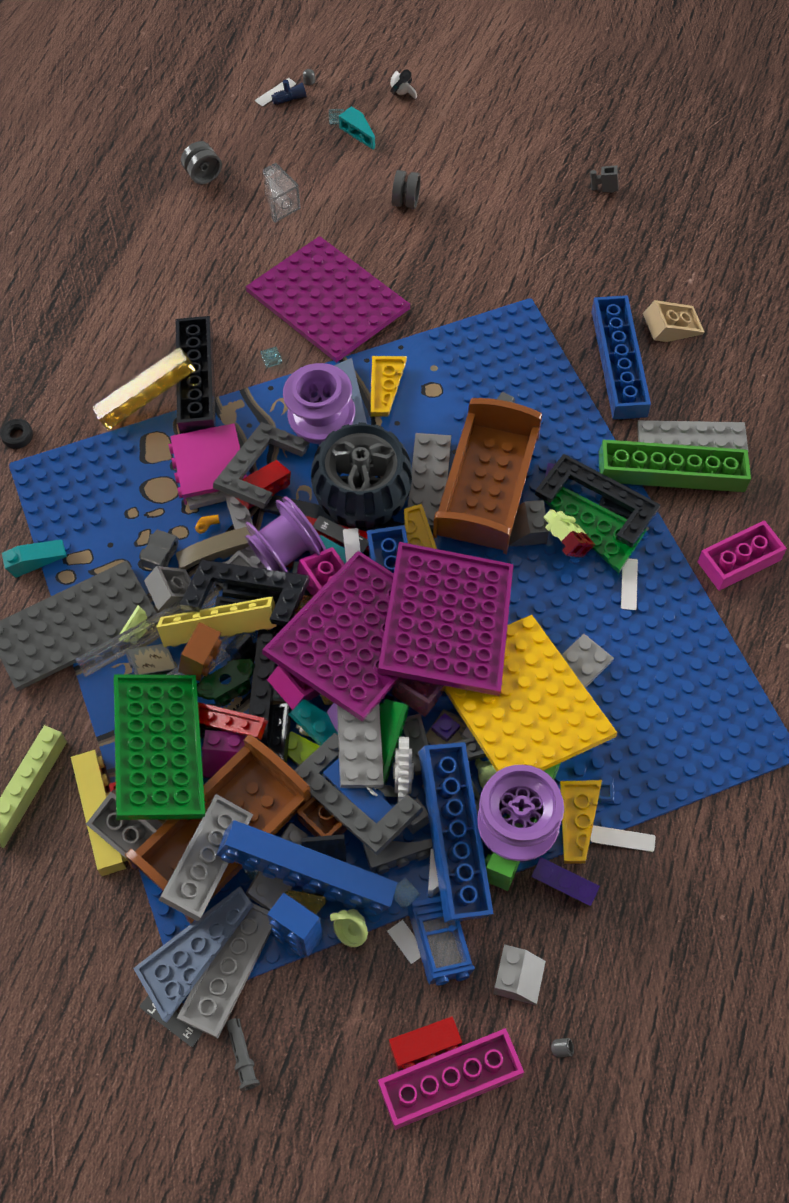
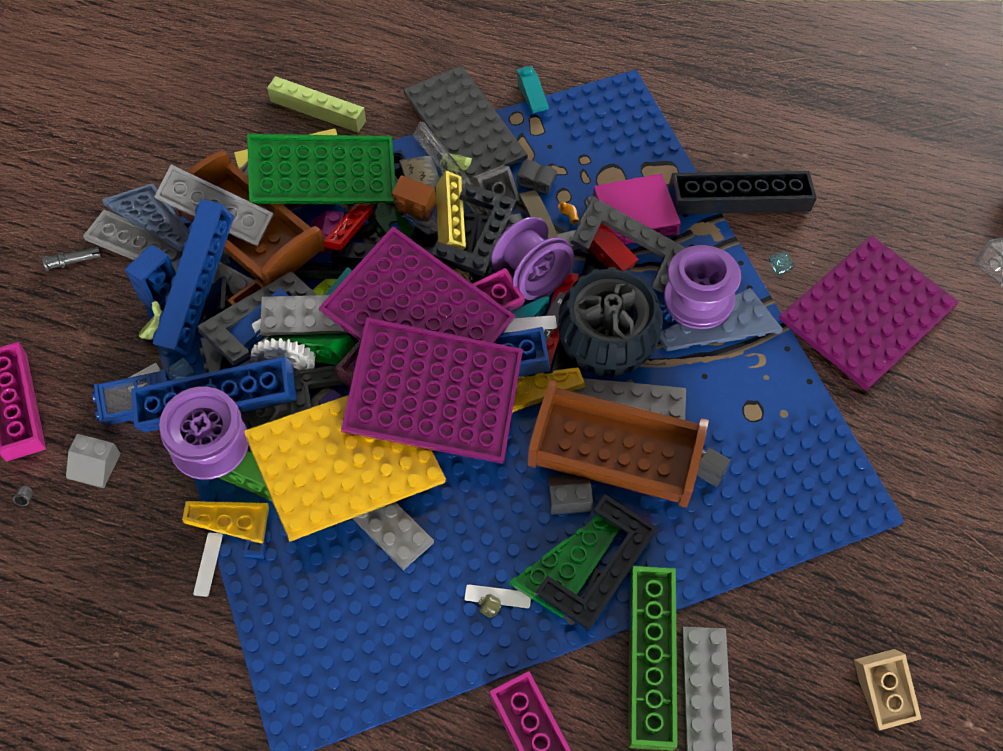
camera: 90 degrees right, 0 degrees up
(23, 440) = (668, 79): black tyre -> none
(143, 388) = (717, 150): clear yellow brick -> none
(385, 382) = (754, 360): yellow wing -> none
(425, 1043) = (48, 385): red brick -> none
(565, 881) = (168, 504): dark purple brick -> none
(571, 534) = (550, 526): hips -> none
(620, 357) = (818, 612): blue brick -> none
(639, 589) = (489, 605): none -> olive piece

